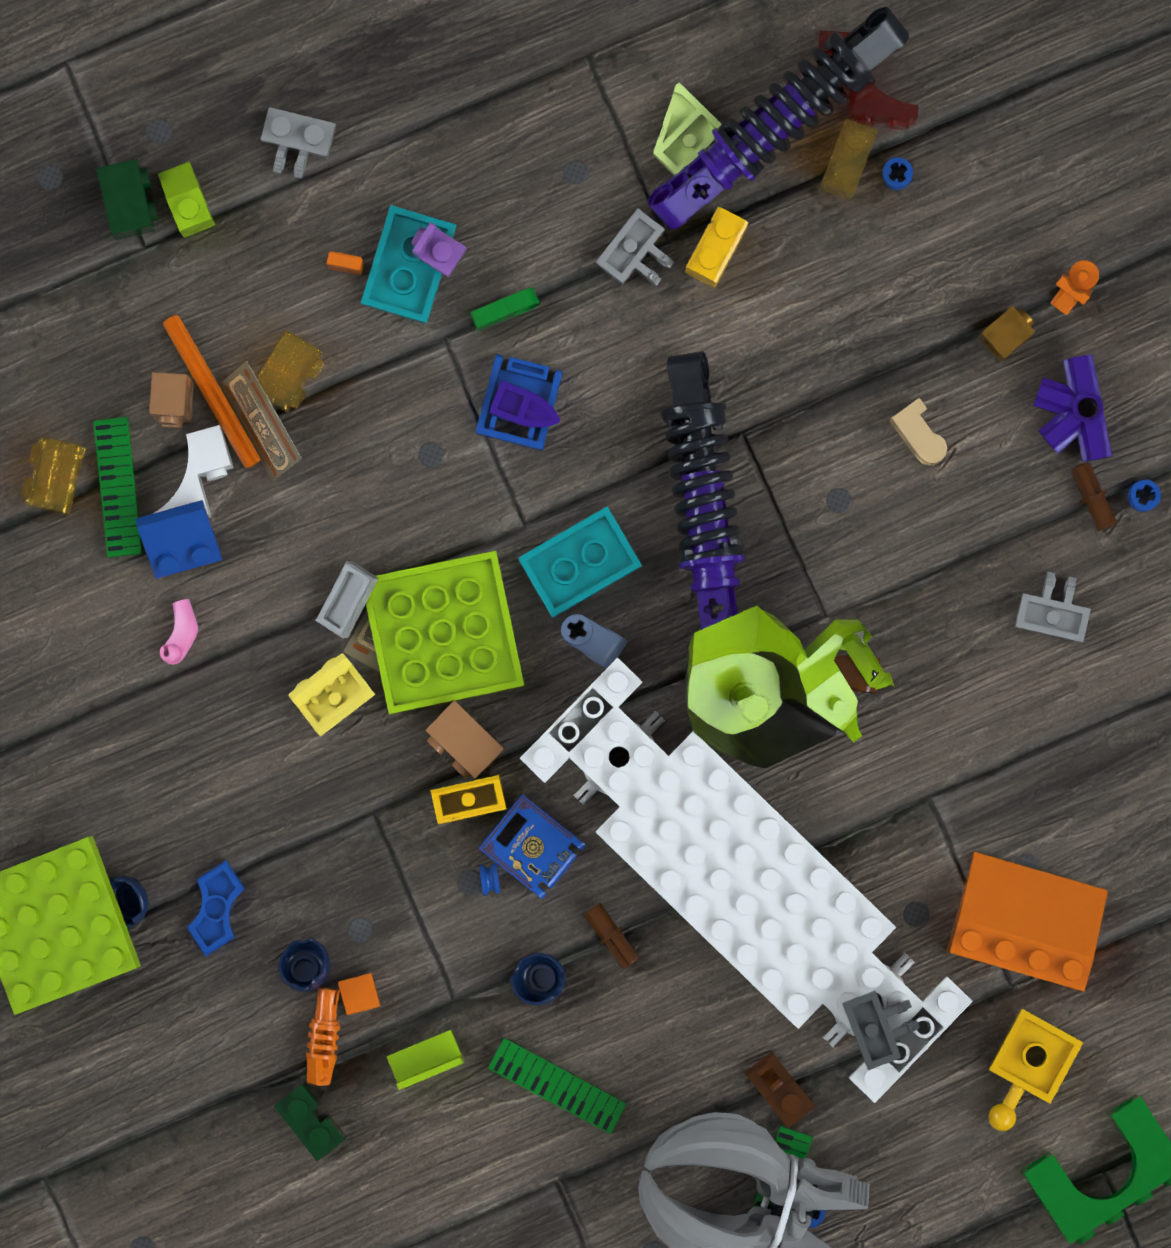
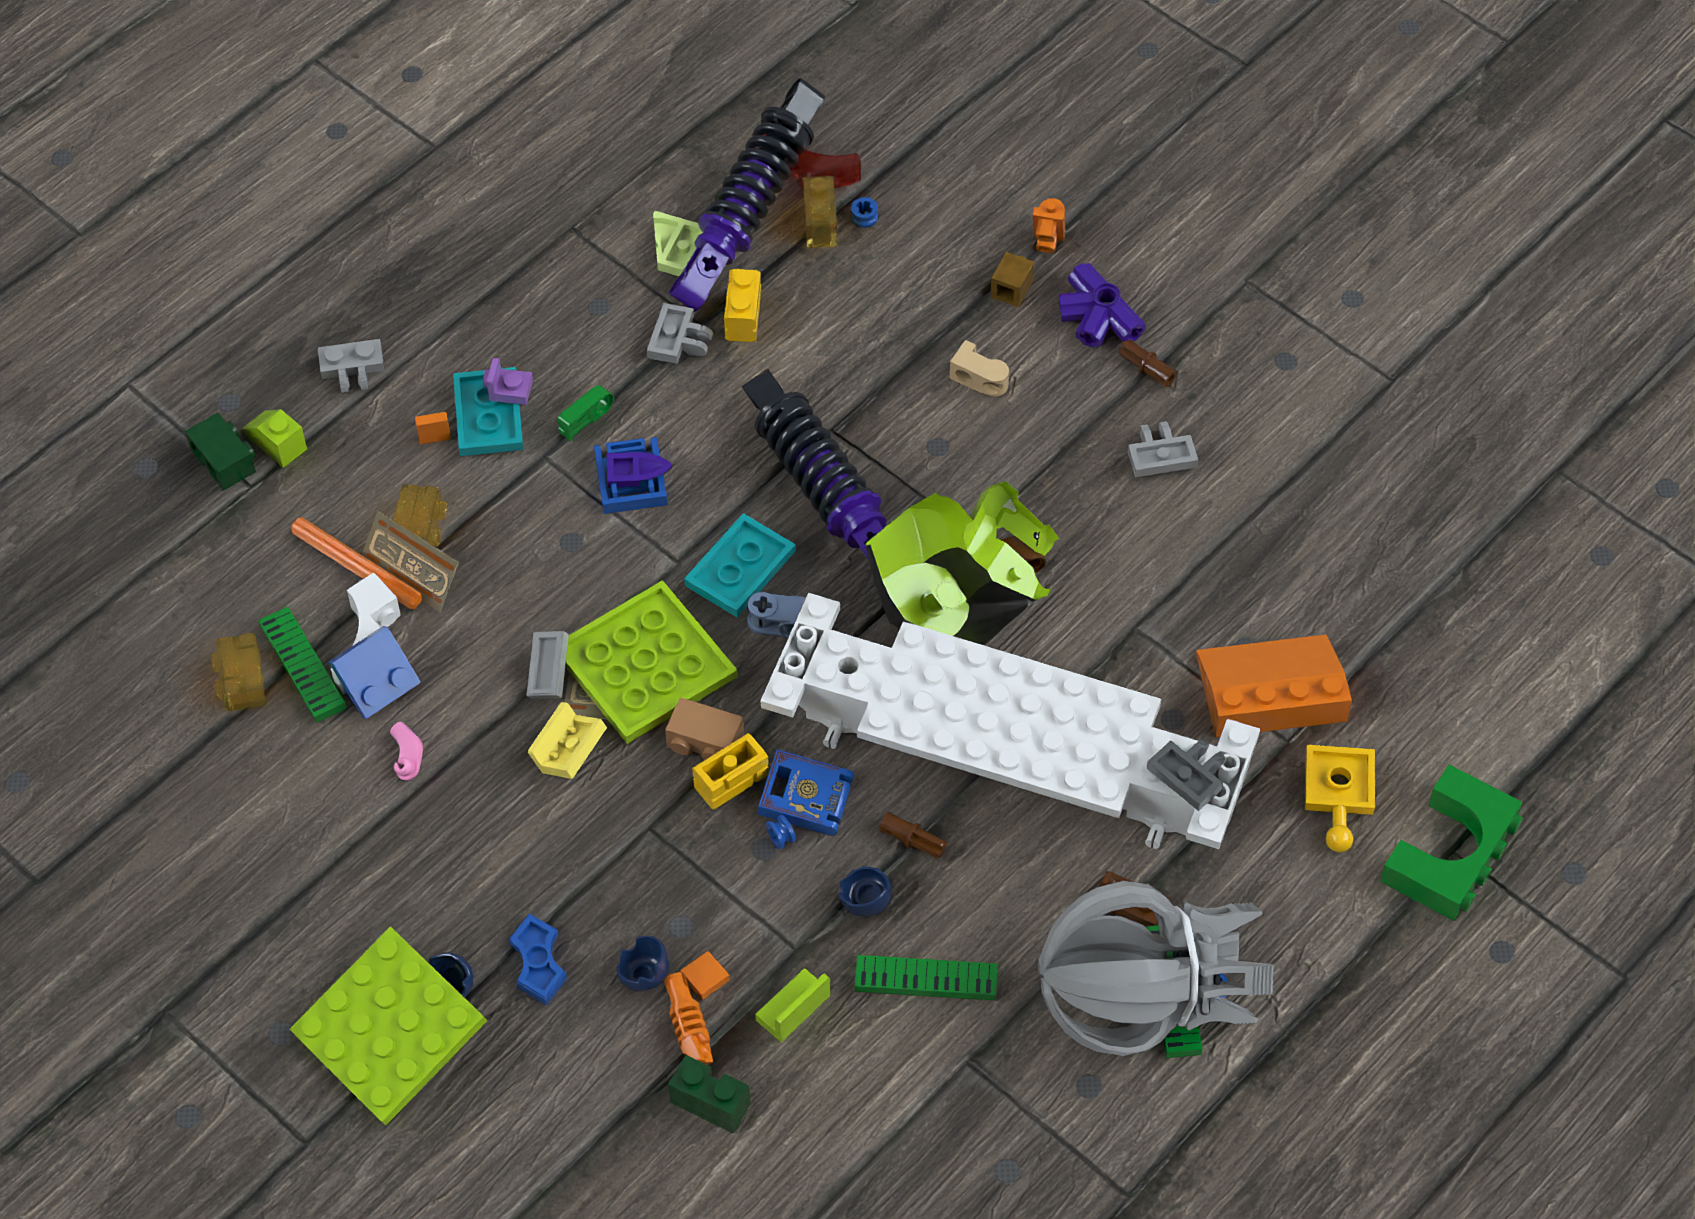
camera: 25 degrees left, 30 degrees down
(171, 399) = (322, 568): medium nougat brick -> none
(1148, 505) = (1183, 356): blue bush -> none

